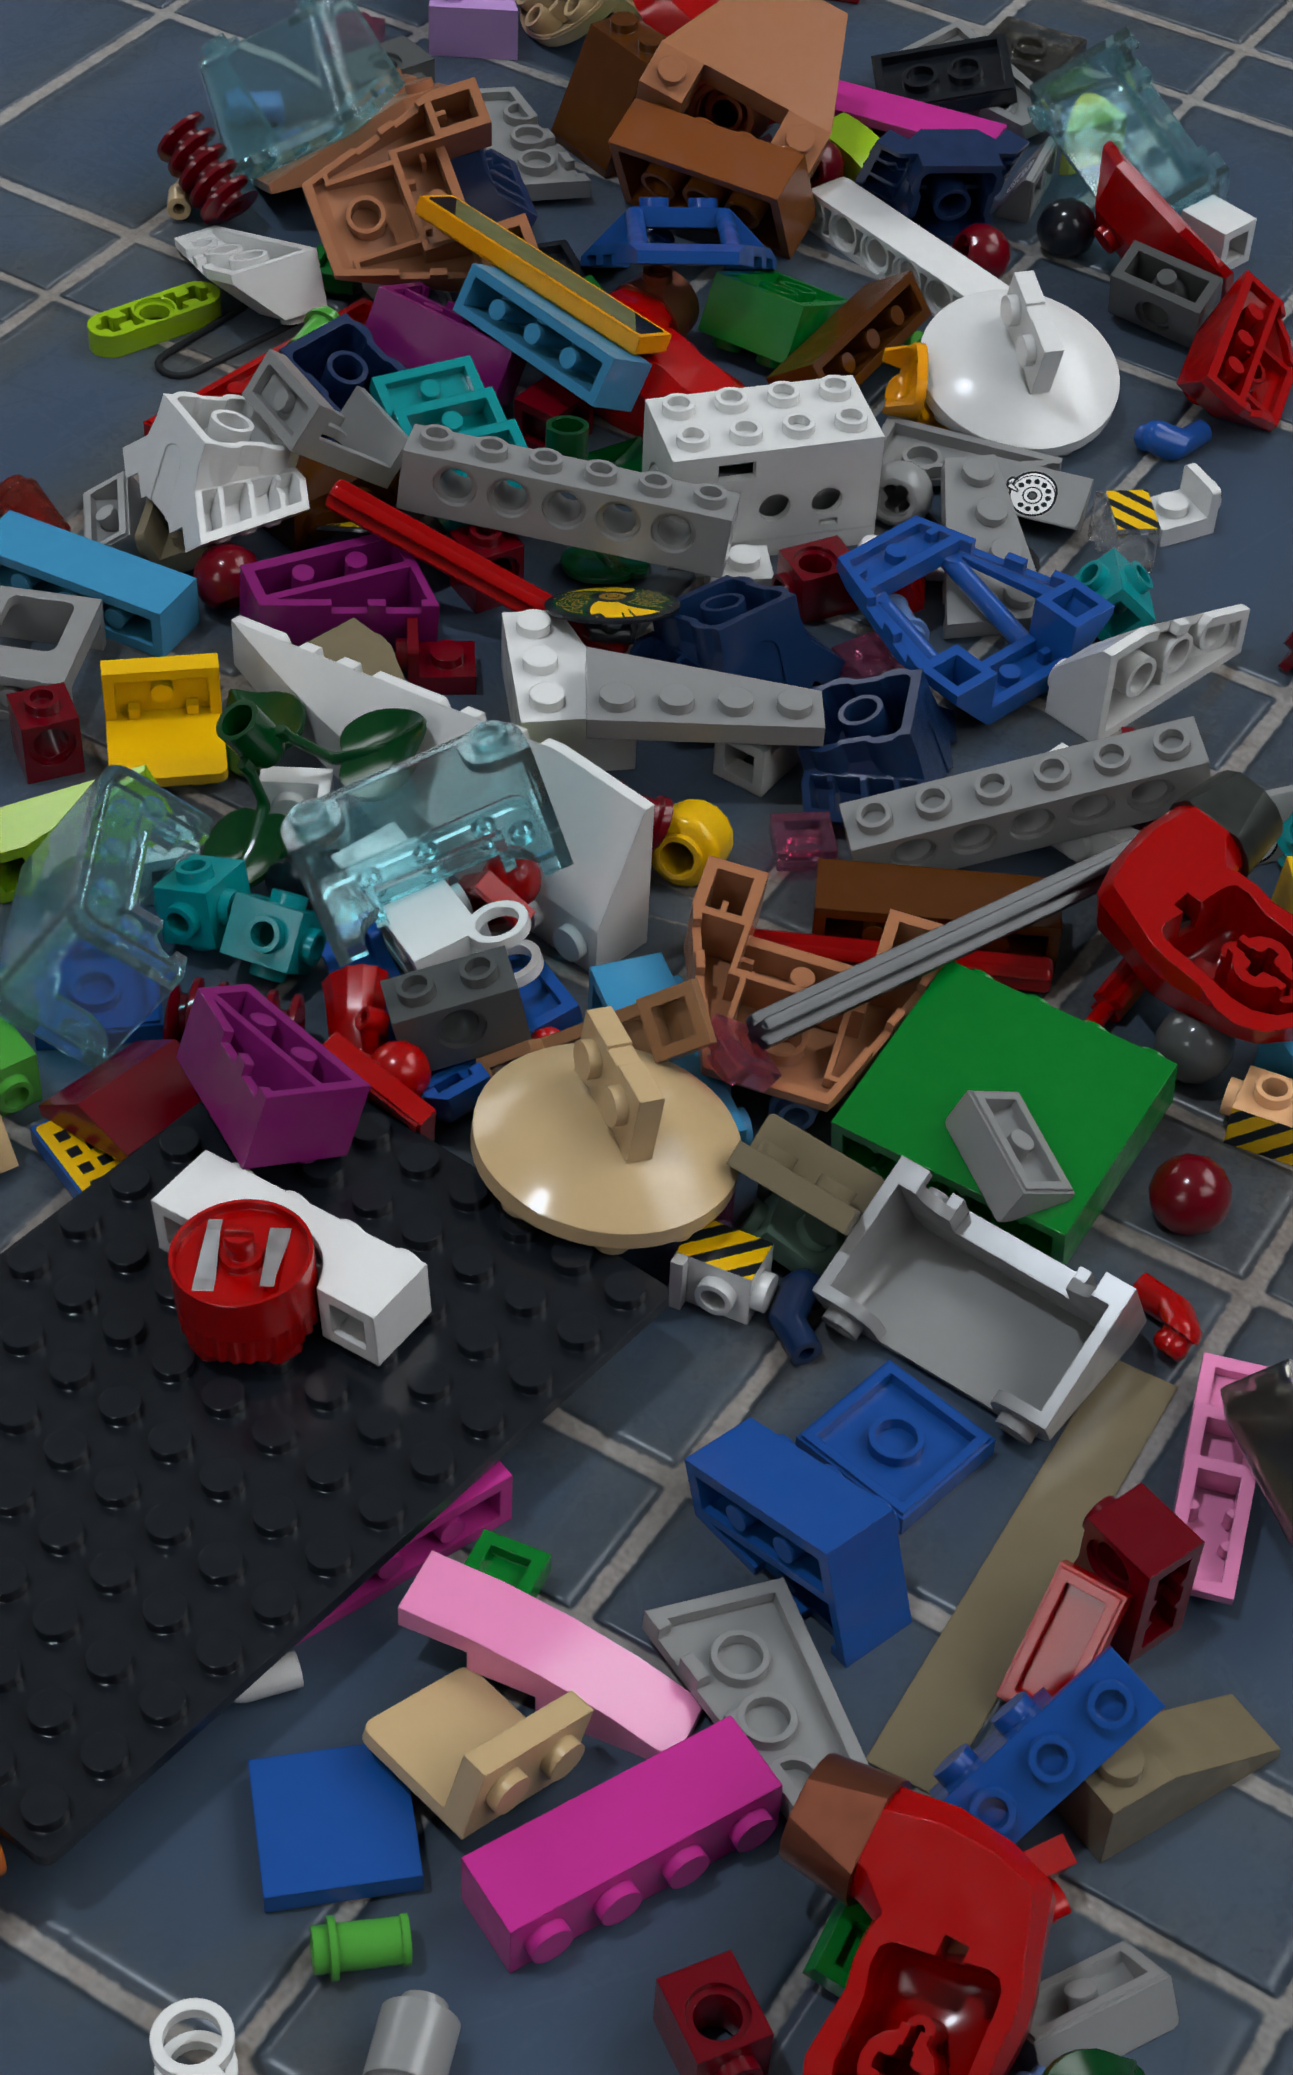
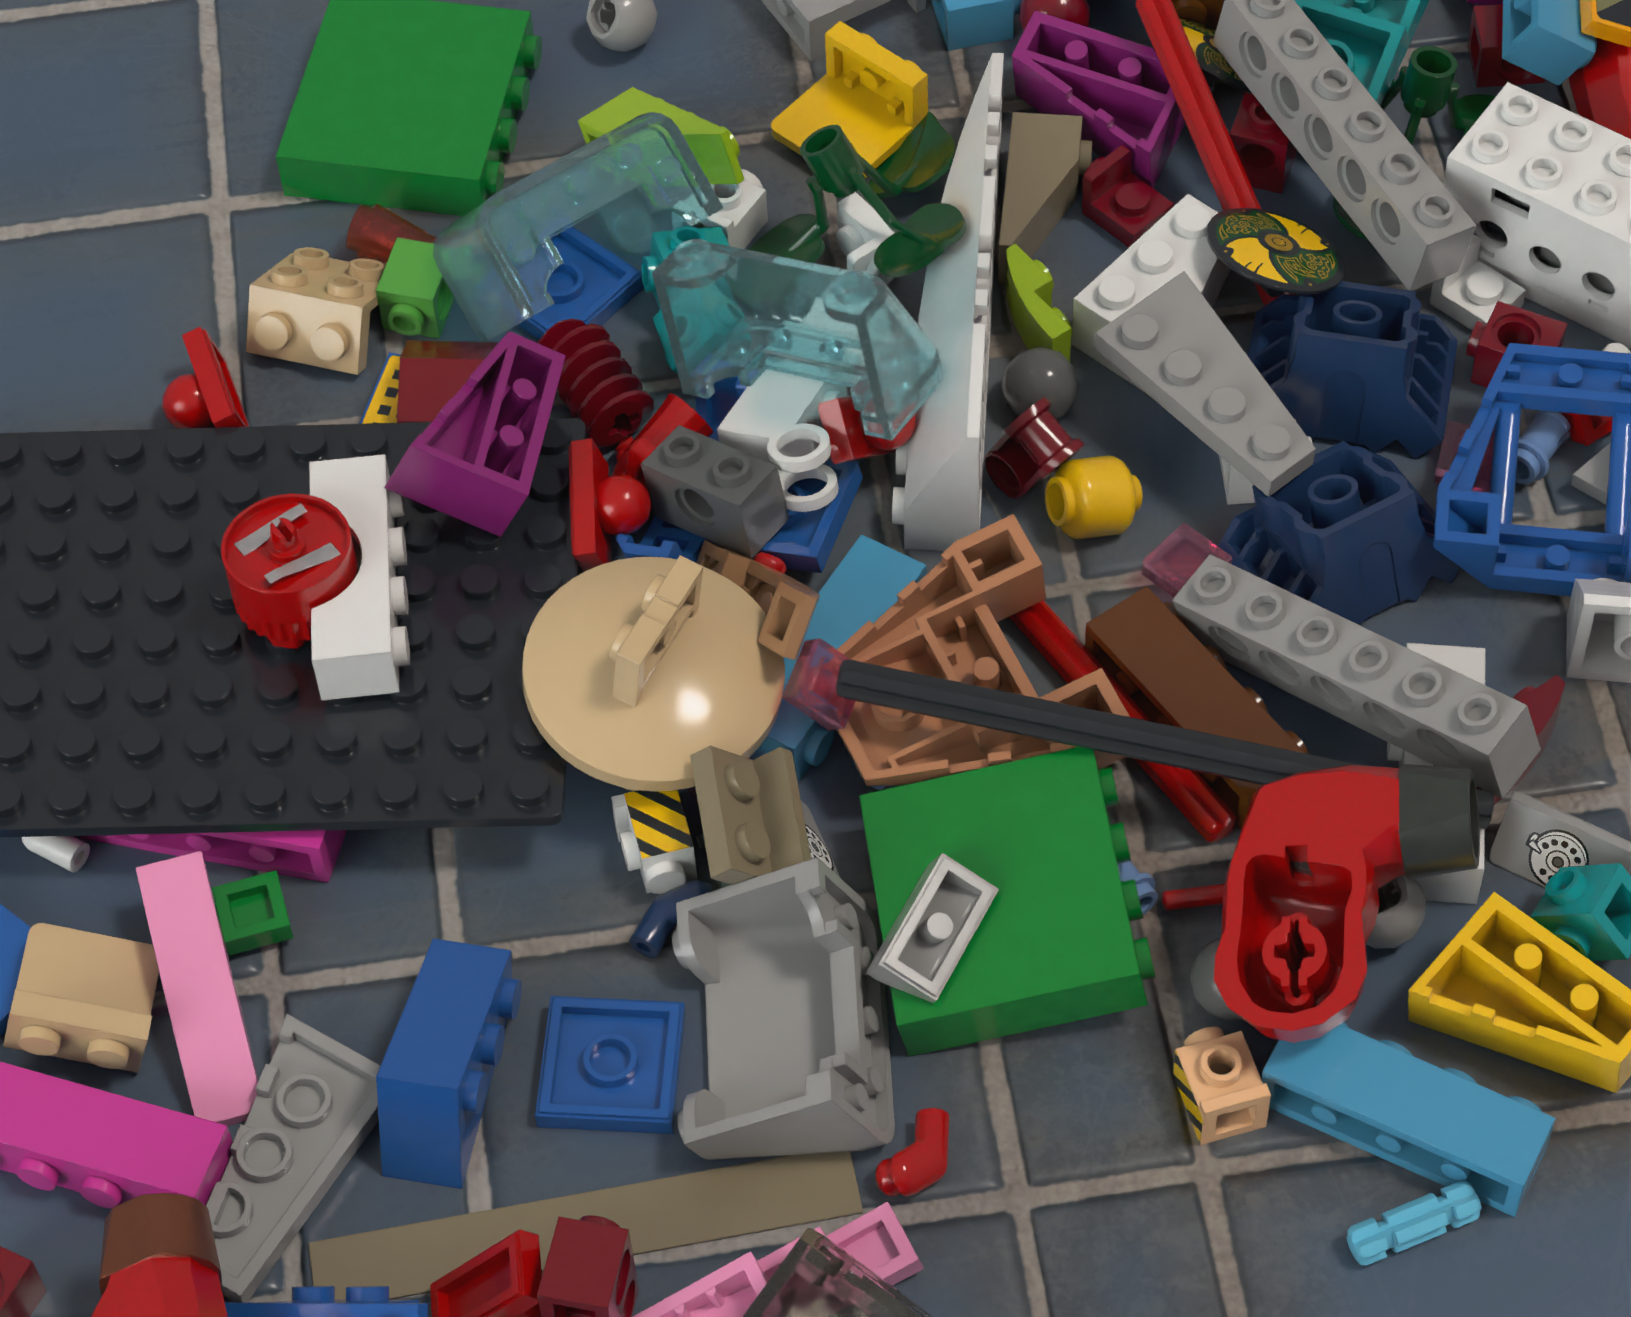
camera: 55 degrees right, 10 degrees up
(45, 732) = (765, 53): dark red brick -> none
(1190, 1194) = (1061, 1085): dark red piece -> none

